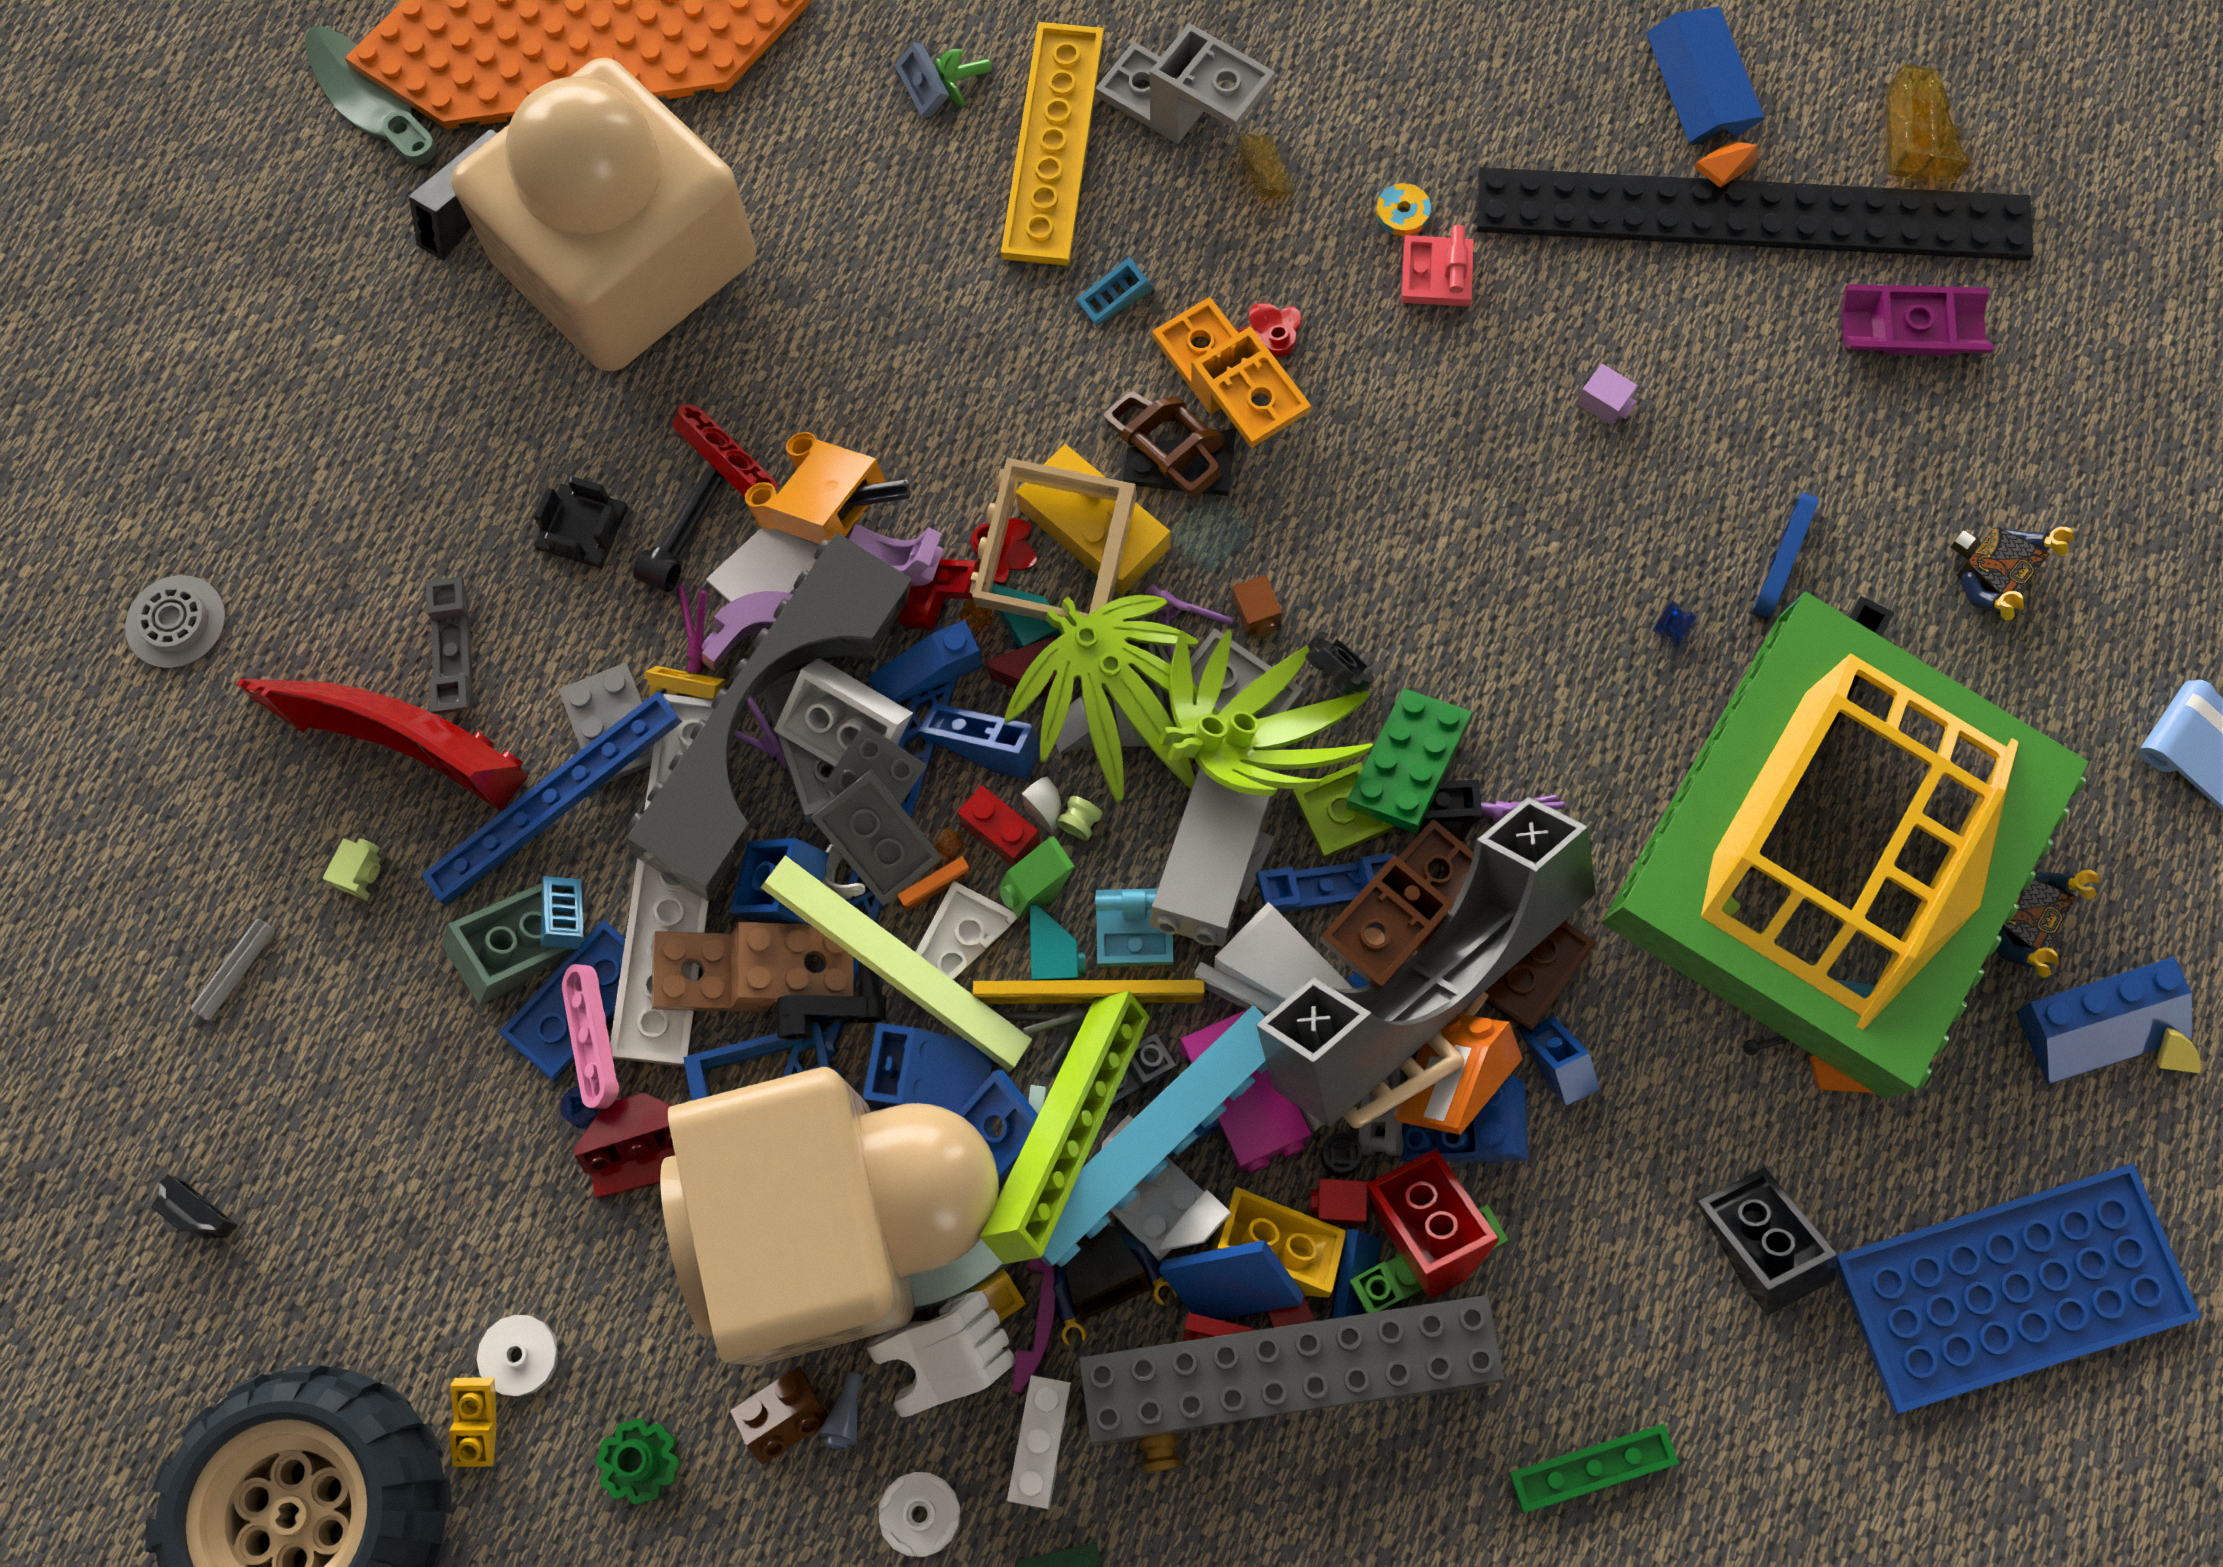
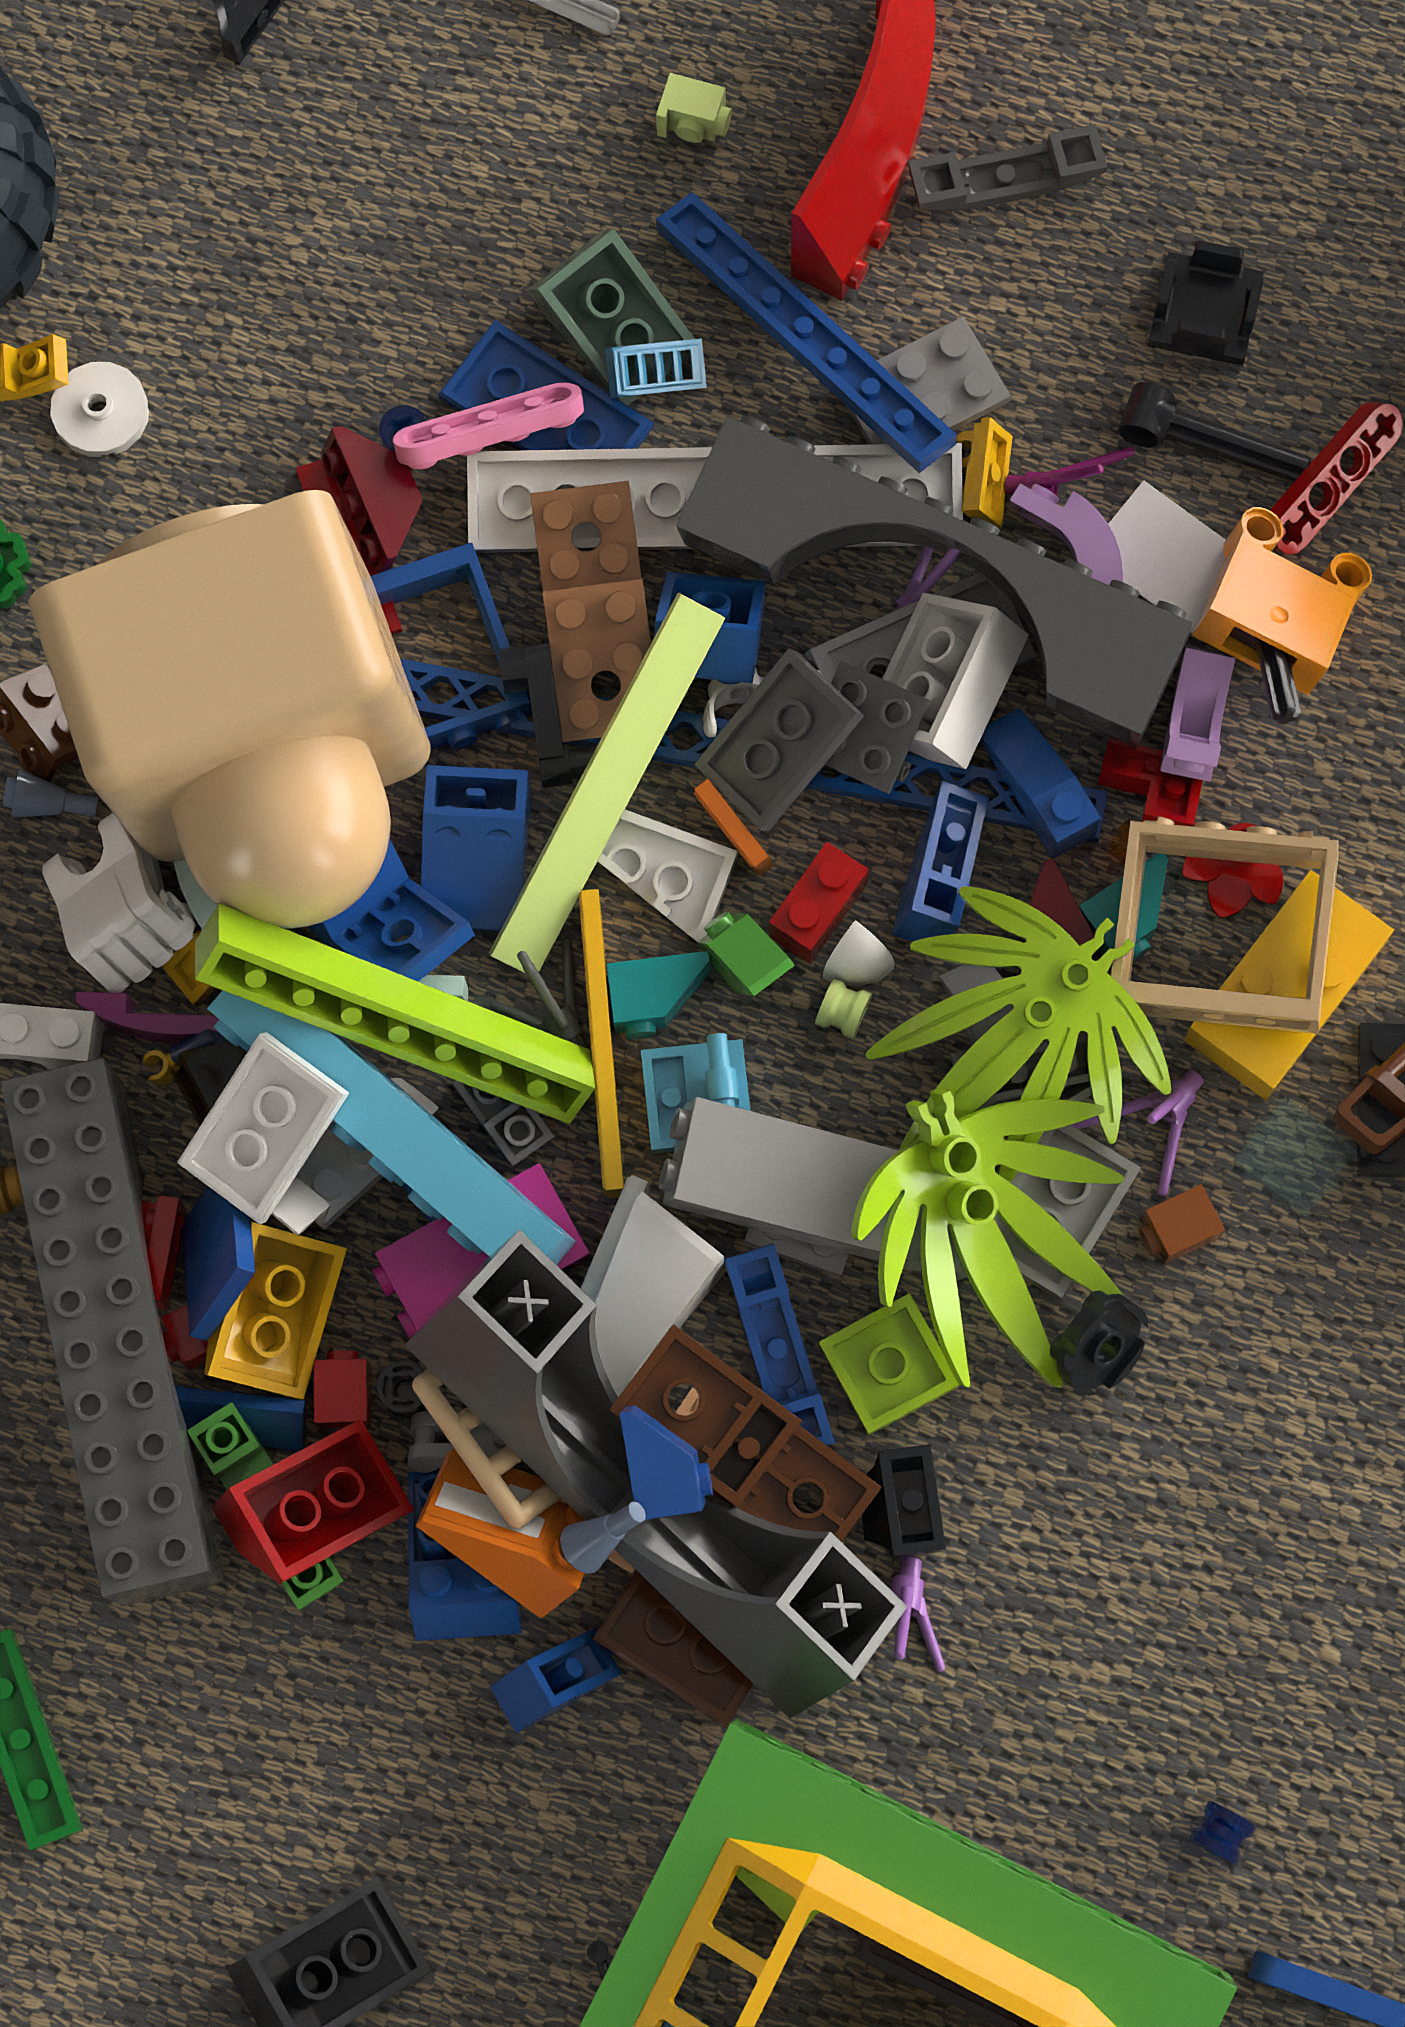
camera: 85 degrees right, 5 degrees up
(949, 843) = (792, 841): clear orange plate -> none
(1150, 1228) = (263, 1127): none -> white tile
(1409, 760) = (966, 1450): green plate -> none
(1430, 948) = (662, 1467): none -> blue slope
(1477, 1005) = (592, 1541): none -> sand blue cone

